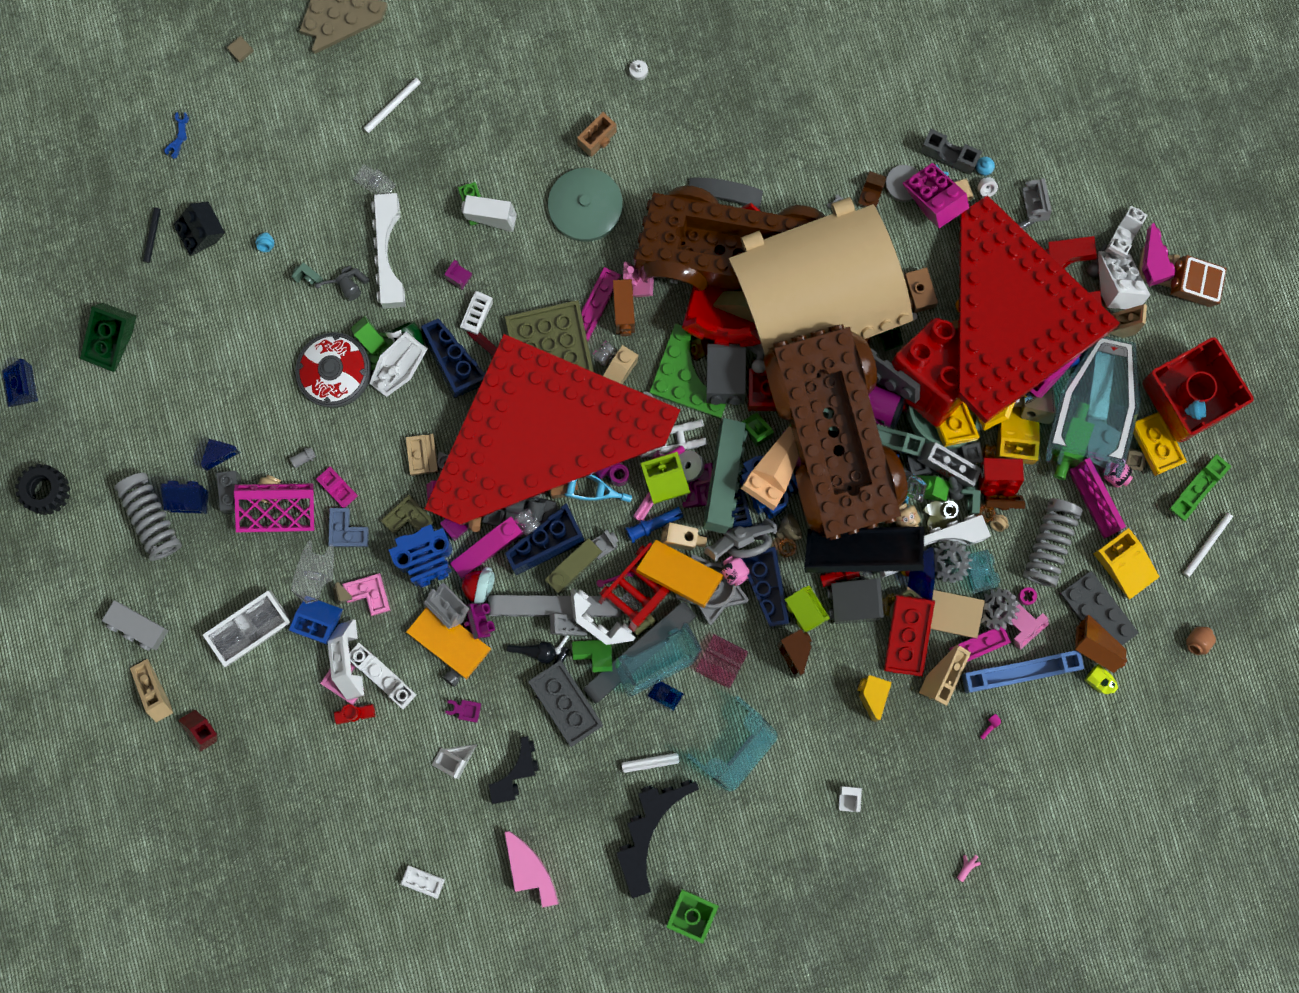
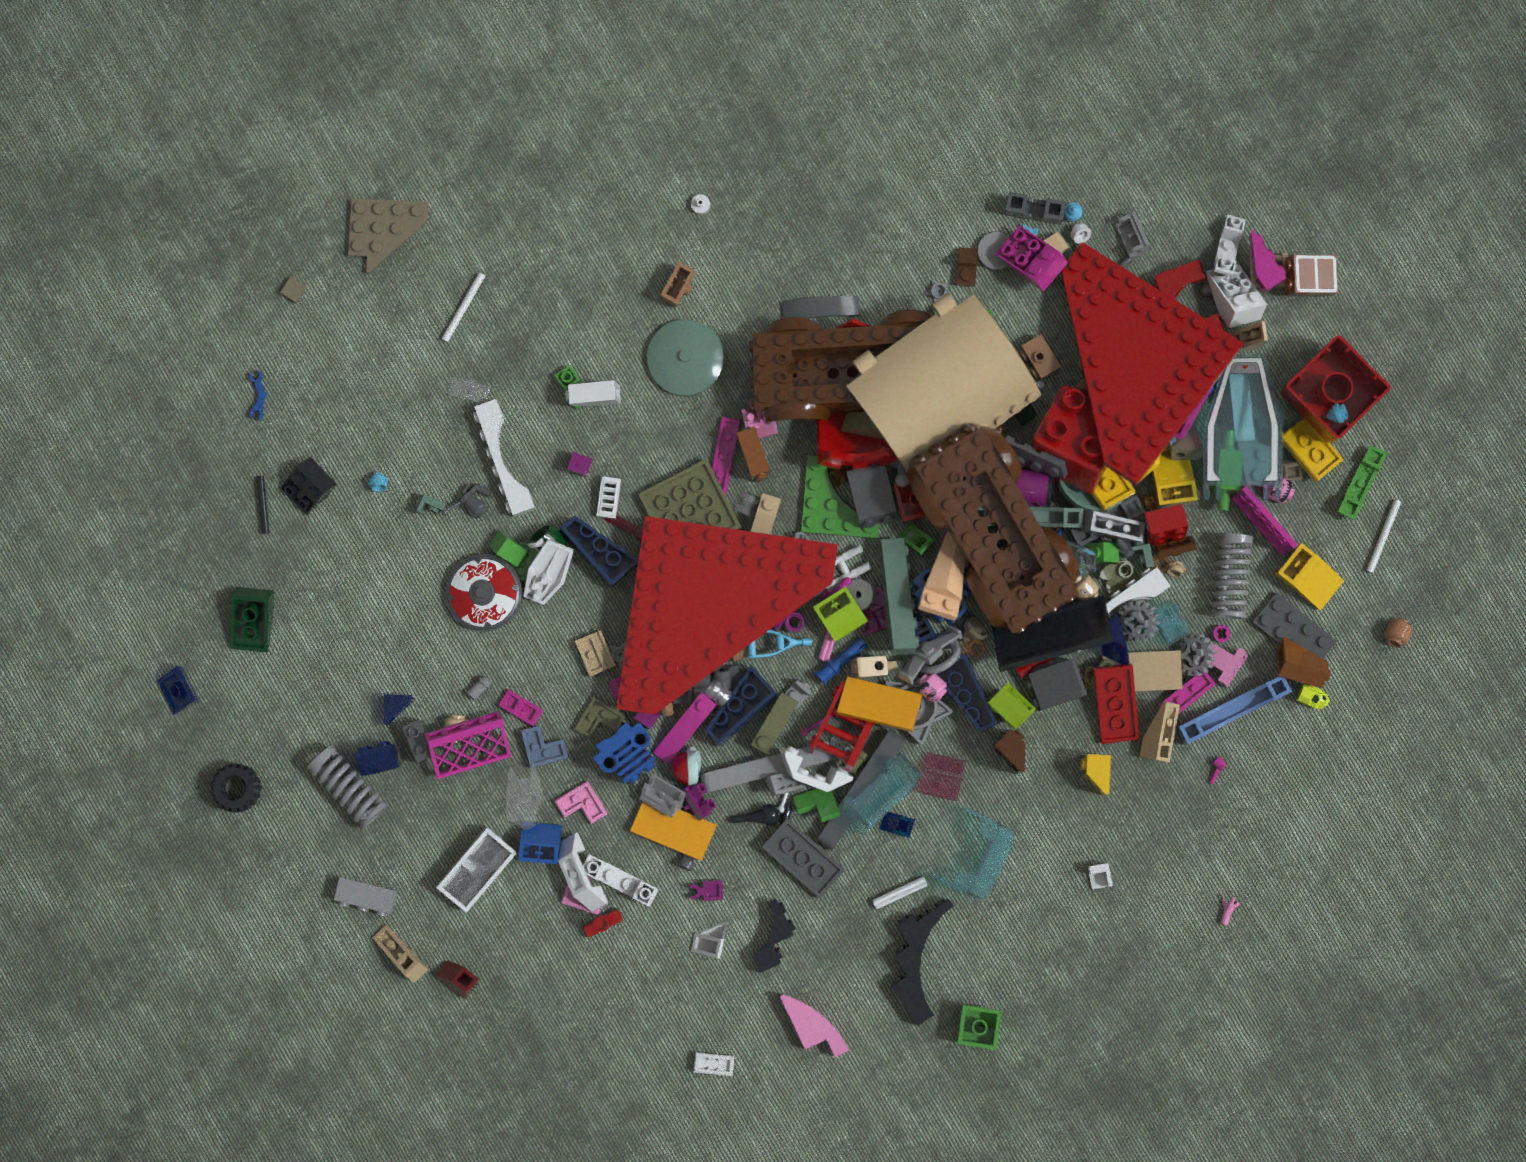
camera: 10 degrees left, 5 degrees up
(341, 594) = (556, 811): dark tan slope -> none

